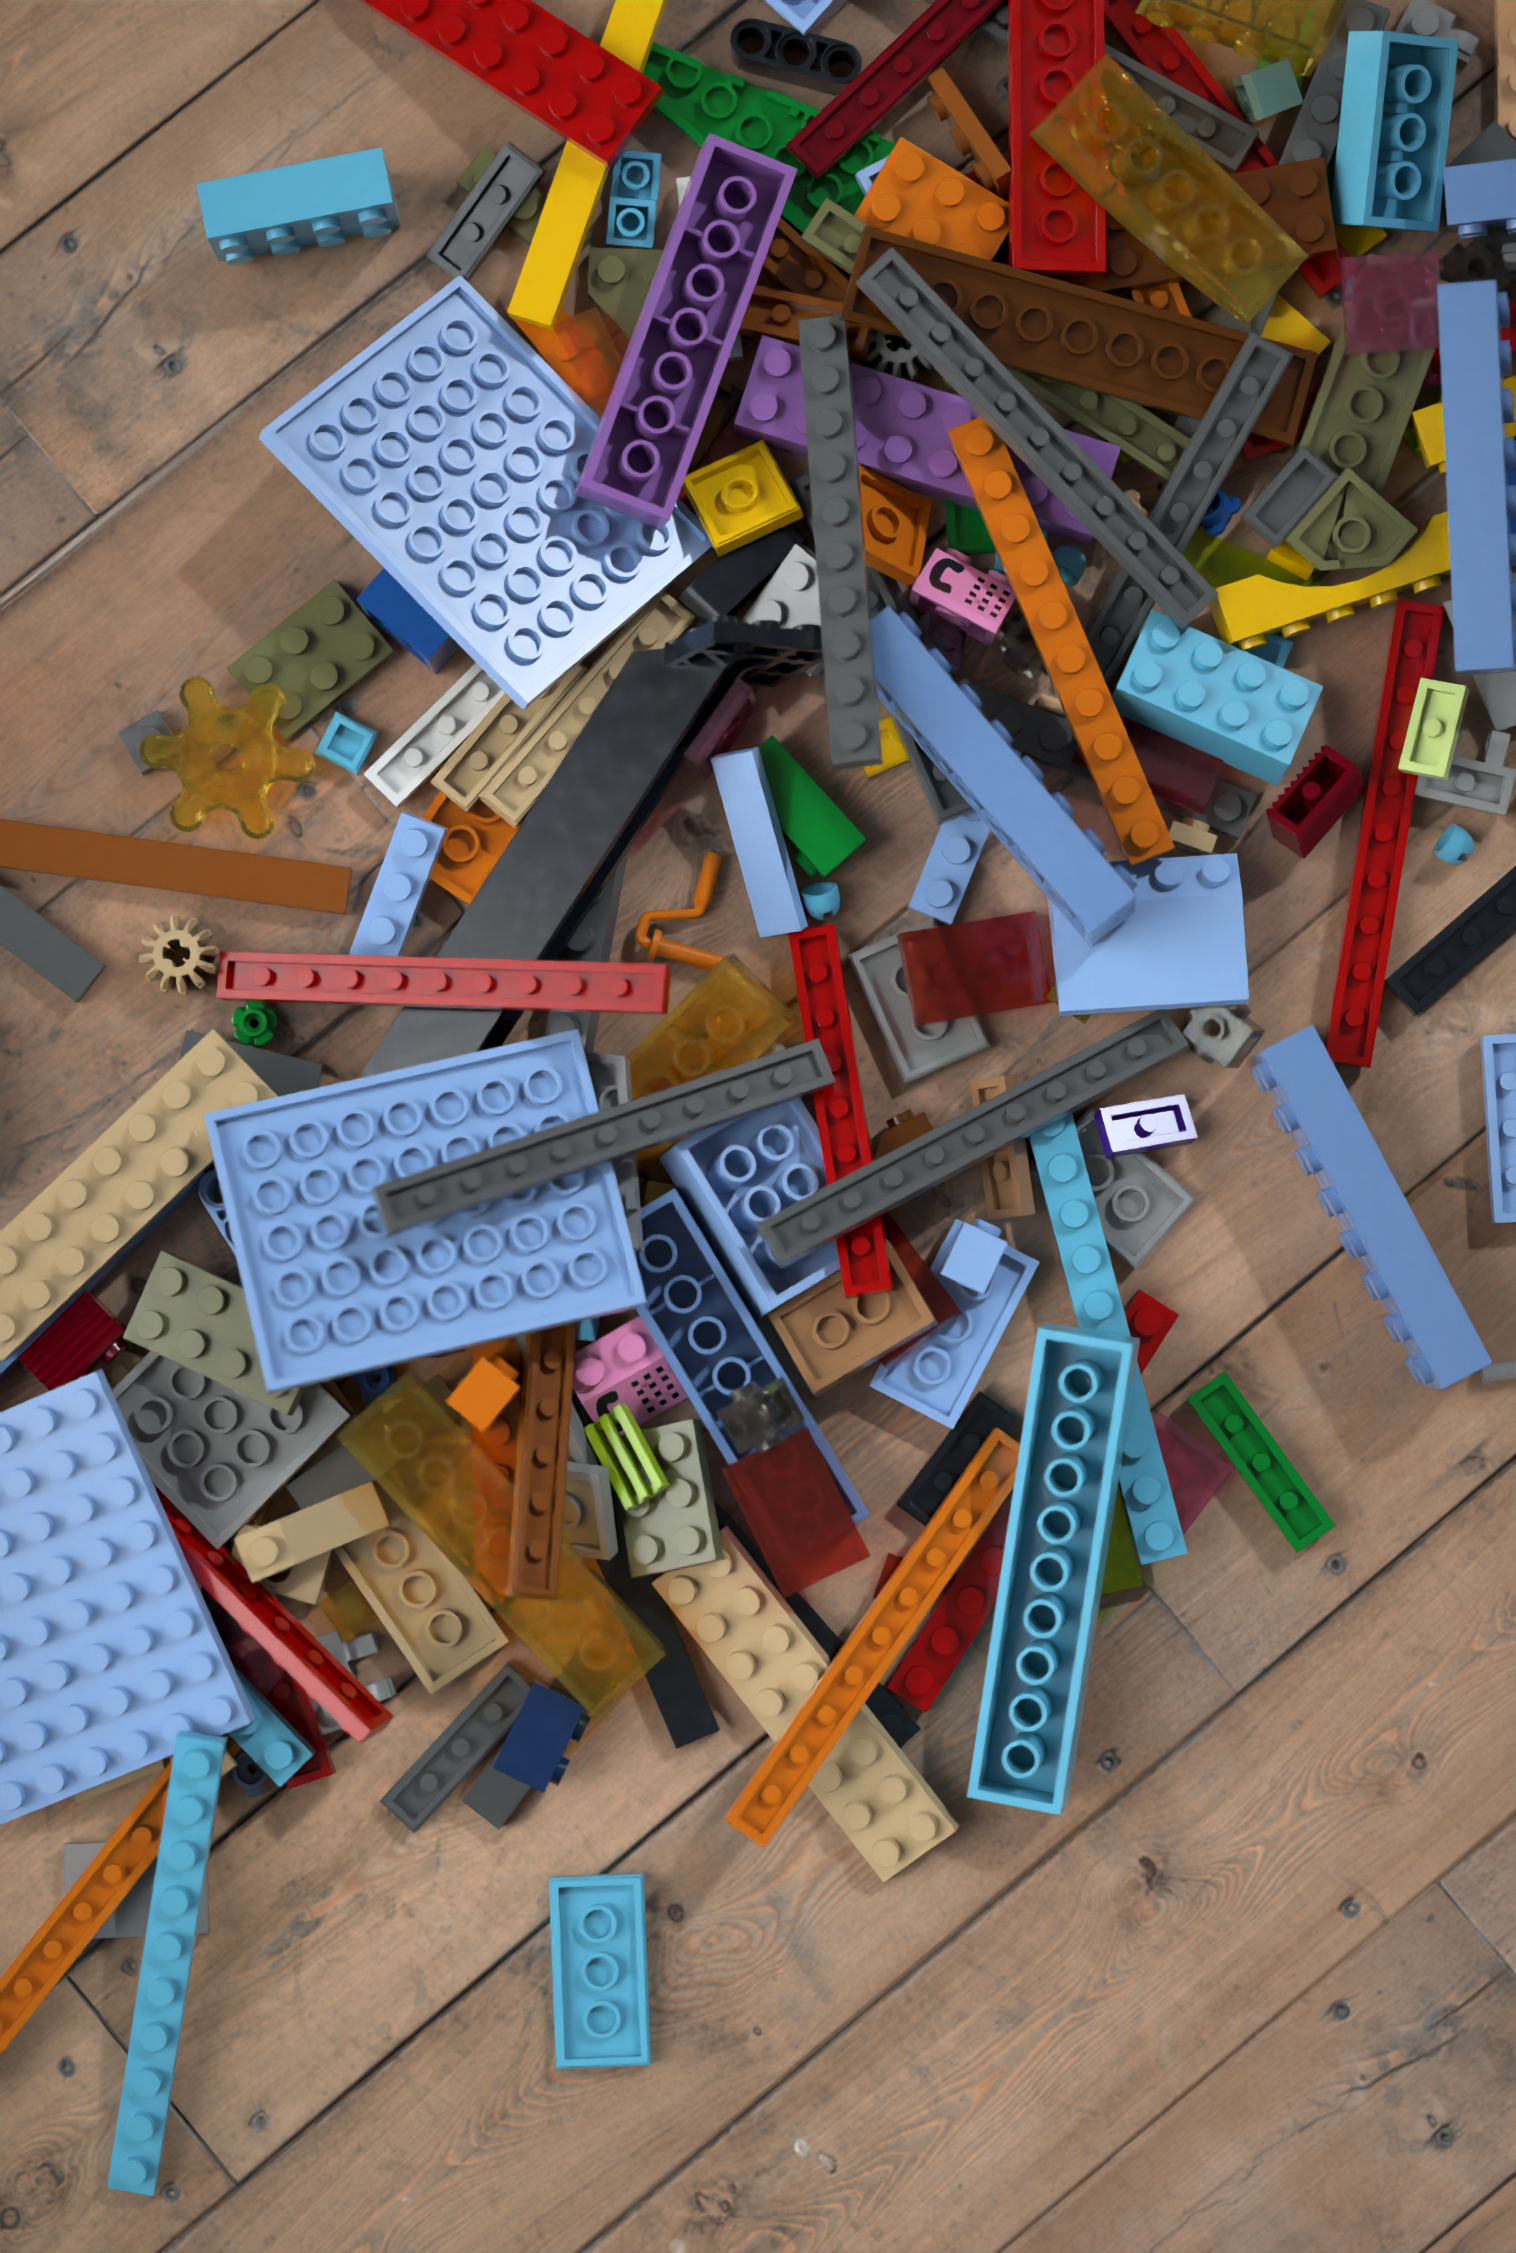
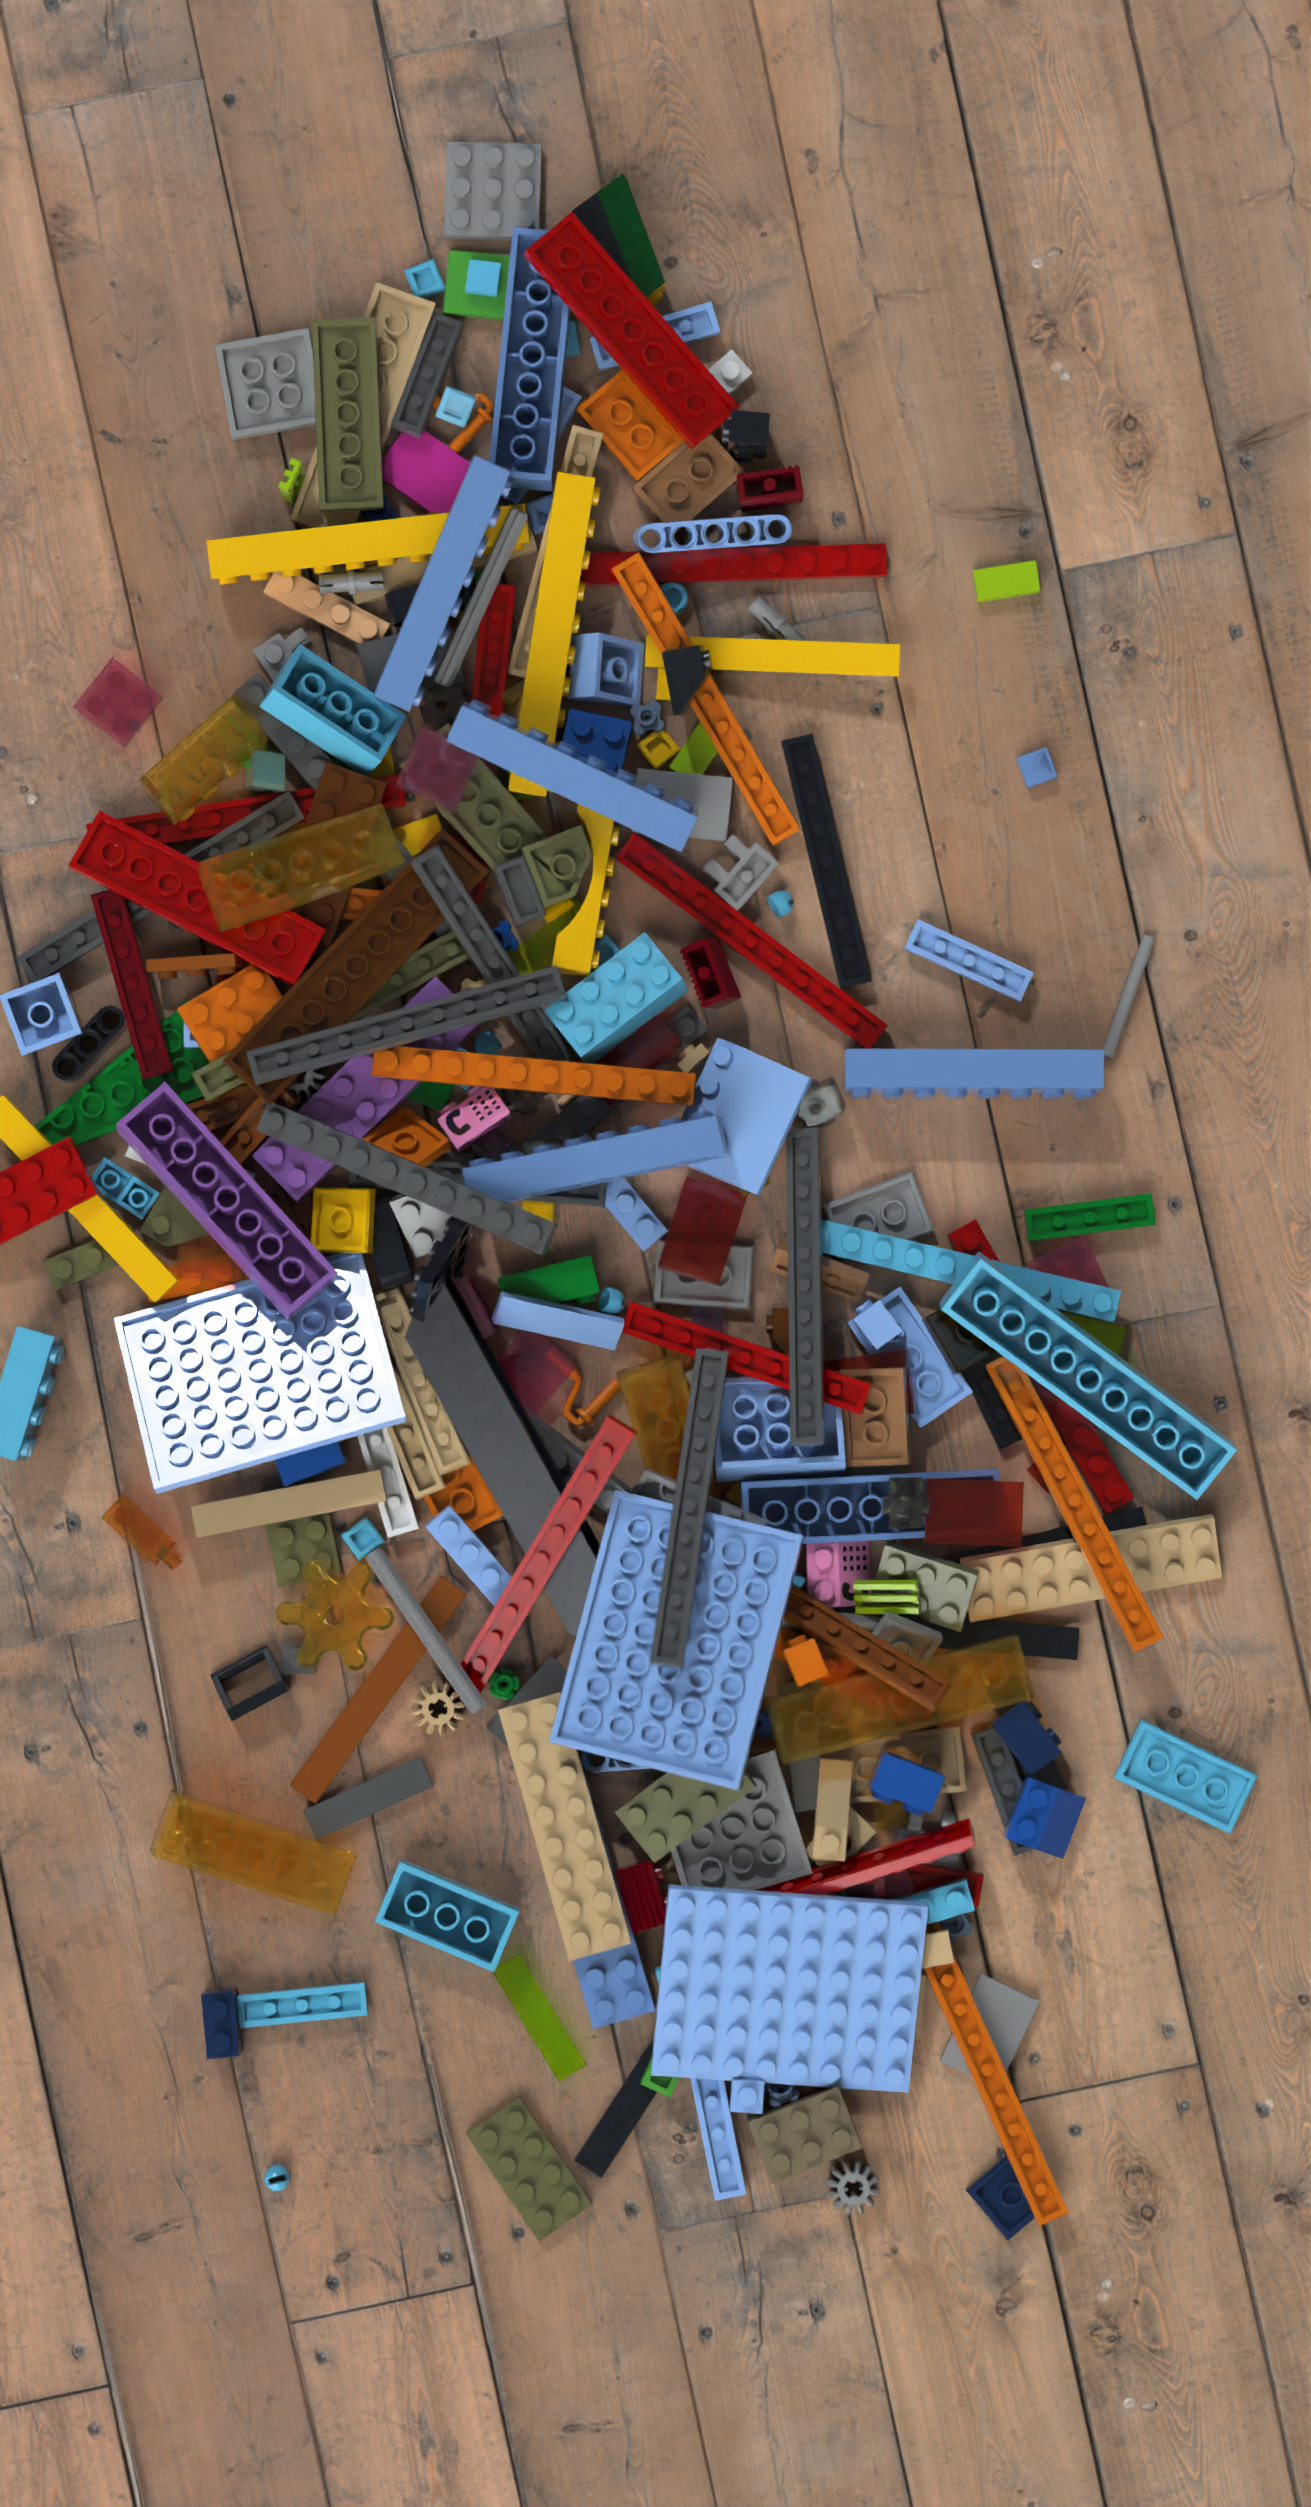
camera: 65 degrees left, 0 degrees up
(99, 738) = (259, 1698): none -> black tile
(166, 1962) = (1044, 2034): medium azure plate -> none
(204, 456) = (141, 1532): none -> clear orange hinge
(268, 885) = (426, 1631): none -> light grey axle
(340, 622) = (288, 1503): none -> tan tile
(397, 1609) = (906, 1782): none -> blue brick
(448, 1813) = (1043, 1817): none -> blue slope
(486, 212) = (85, 1282): tile -> none
(681, 847) = (535, 1368): none -> clear pink tile
(867, 1036) = (708, 1316): none -> clear purple tile
(1005, 1372) = (955, 1342): none -> dark brown tile
(1145, 1126) = (852, 1179): plate -> none
(1433, 729) = (705, 879): yellowish green plate -> none

